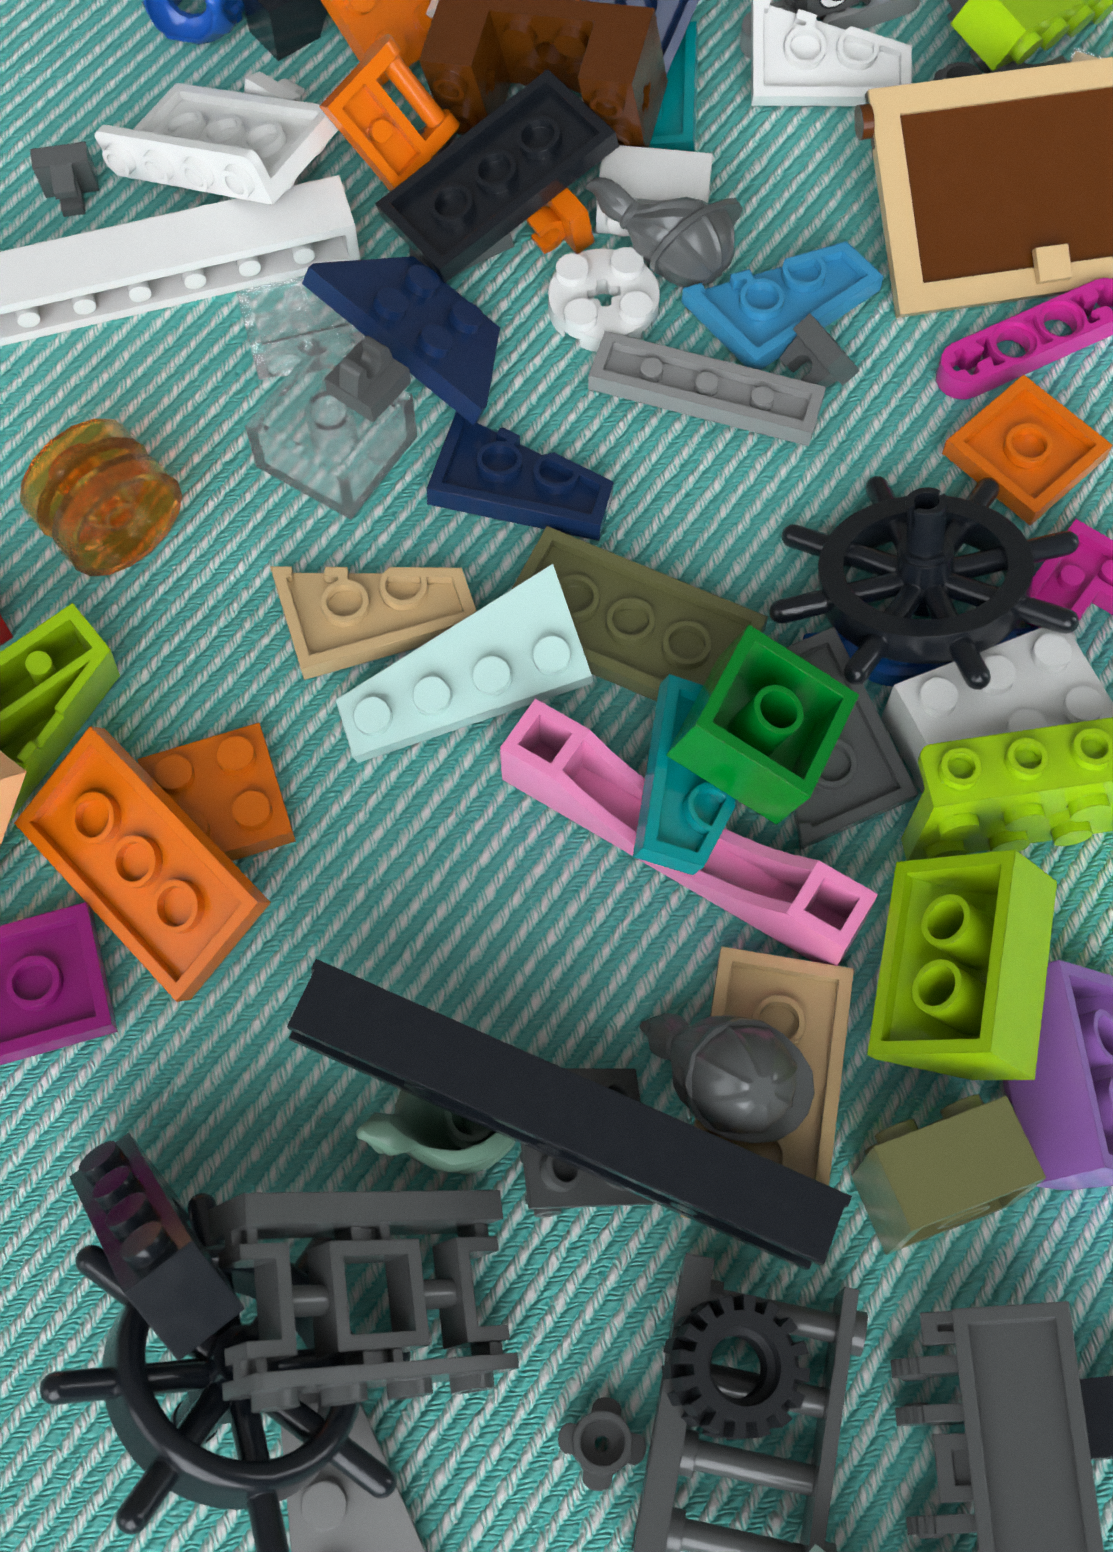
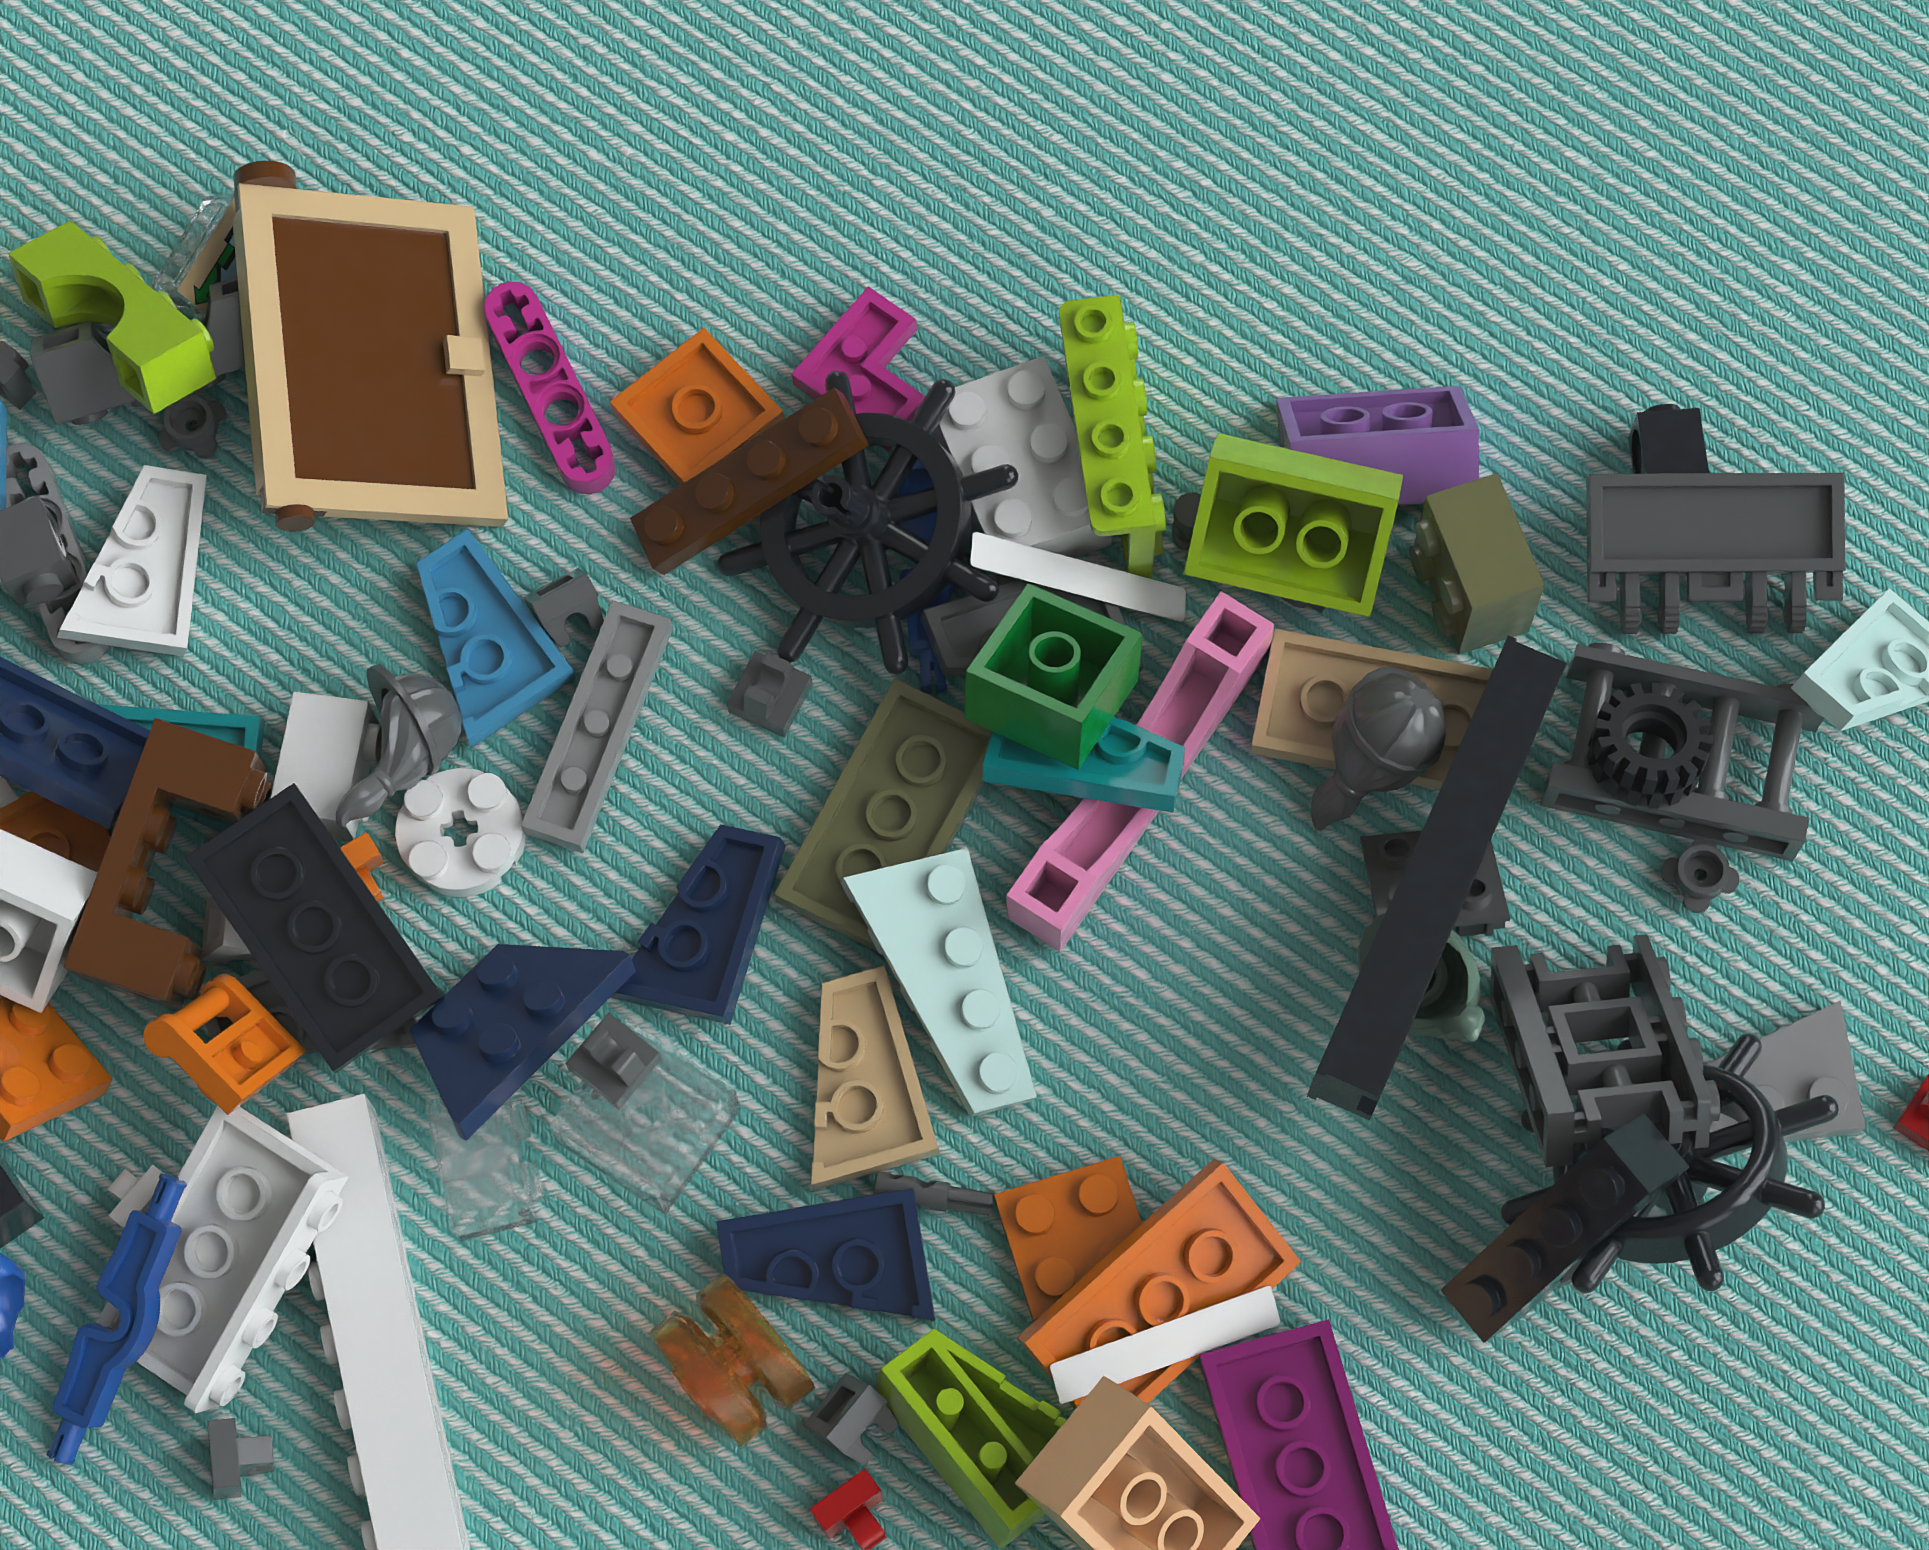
camera: 85 degrees left, 5 degrees up
(48, 596) = (846, 1415): none -> dark grey tile
(96, 870) = (1166, 1343): none -> white sticker
(162, 89) = (132, 1287): none -> blue piece
(212, 595) = (834, 1252): none -> dark blue wing
(265, 671) = (937, 1194): none -> dark grey pin
(750, 525) = (769, 693): none -> dark grey tile
(887, 768) = (1077, 576): none -> white sticker
(976, 495) = (749, 481): none -> reddish brown plate

